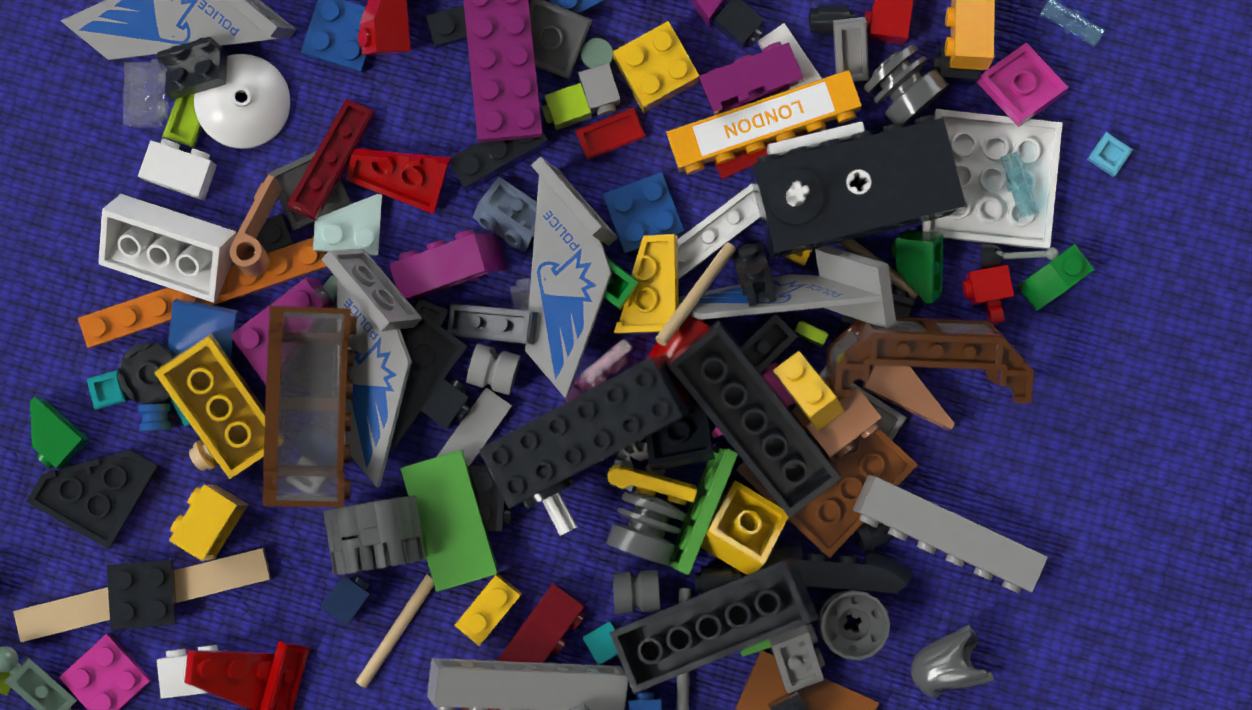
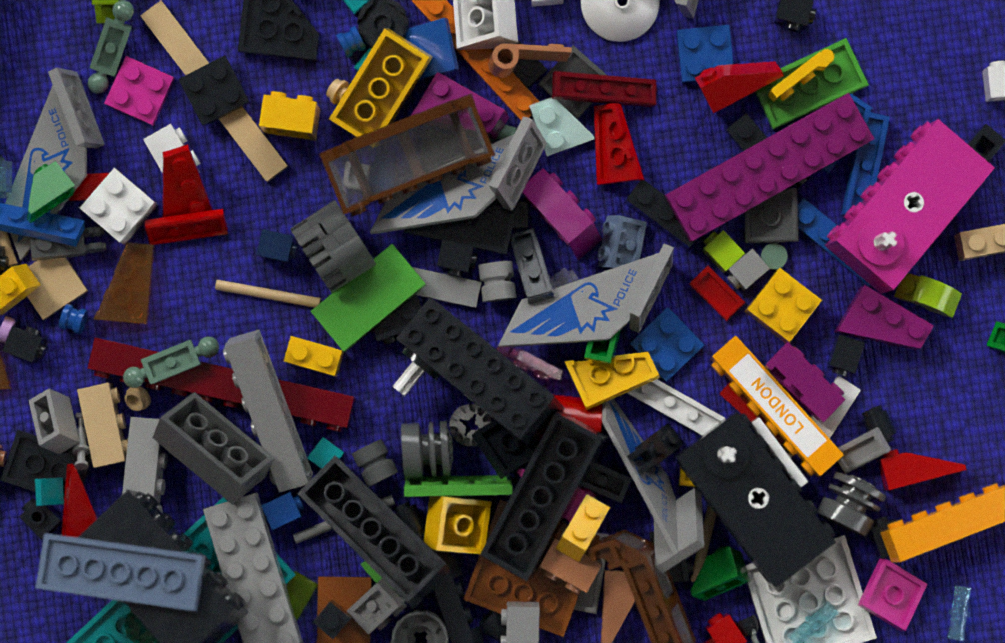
camera: 65 degrees right, 0 degrees up
(650, 483) = (461, 437): yellow hinge -> none
(695, 294) = (621, 411): tan bar -> none
(810, 333) = (629, 512): lime tile -> none

